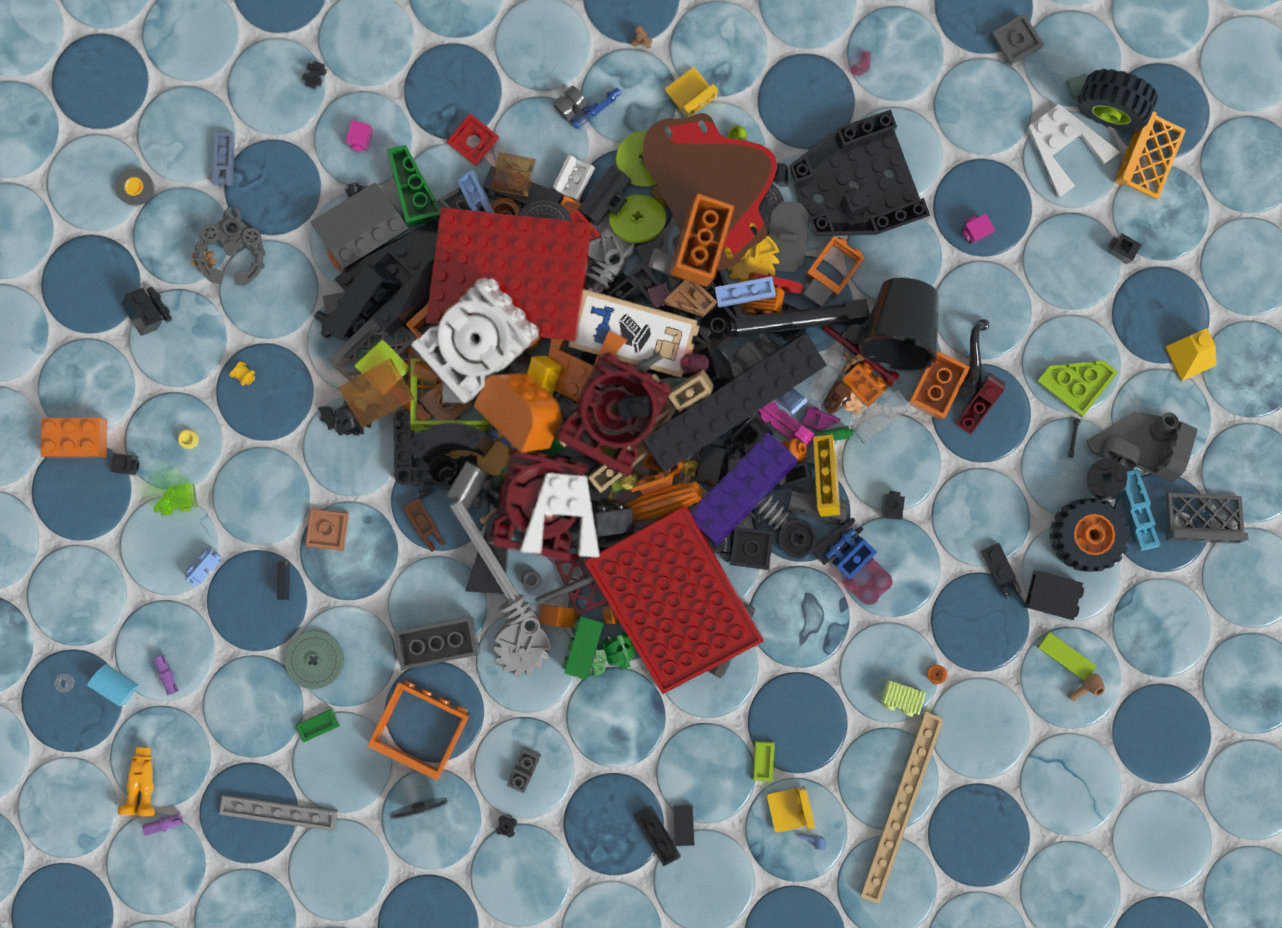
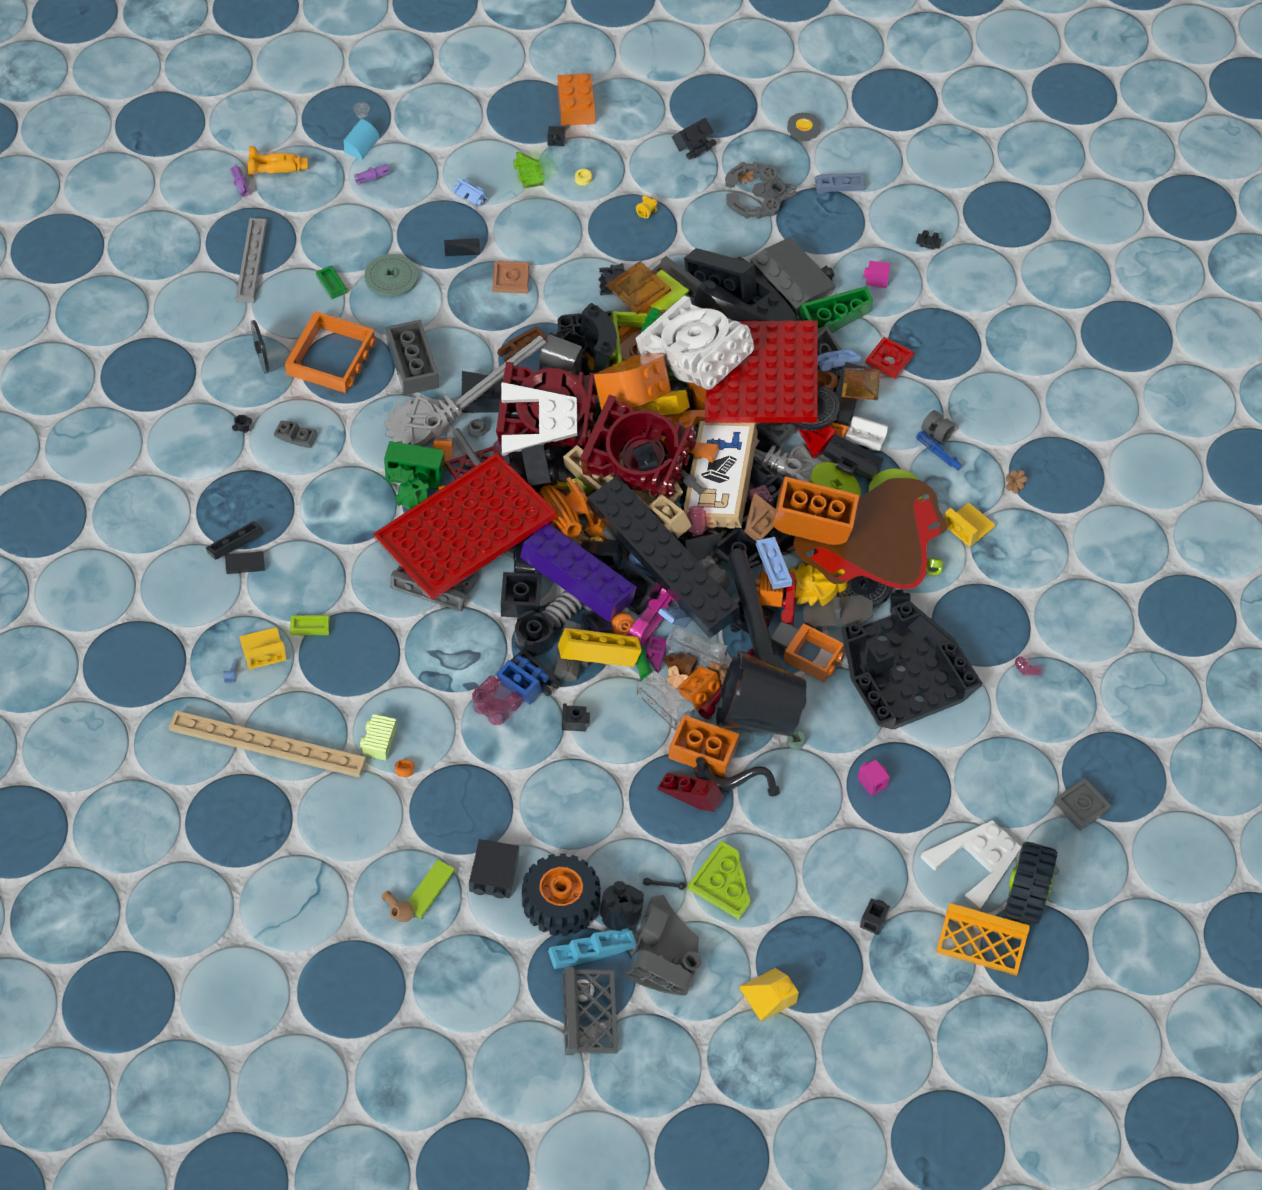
camera: 80 degrees right, 30 degrees down
(430, 384) = (652, 316): none -> green piece
(1000, 569) = (517, 822): black hinge -> none

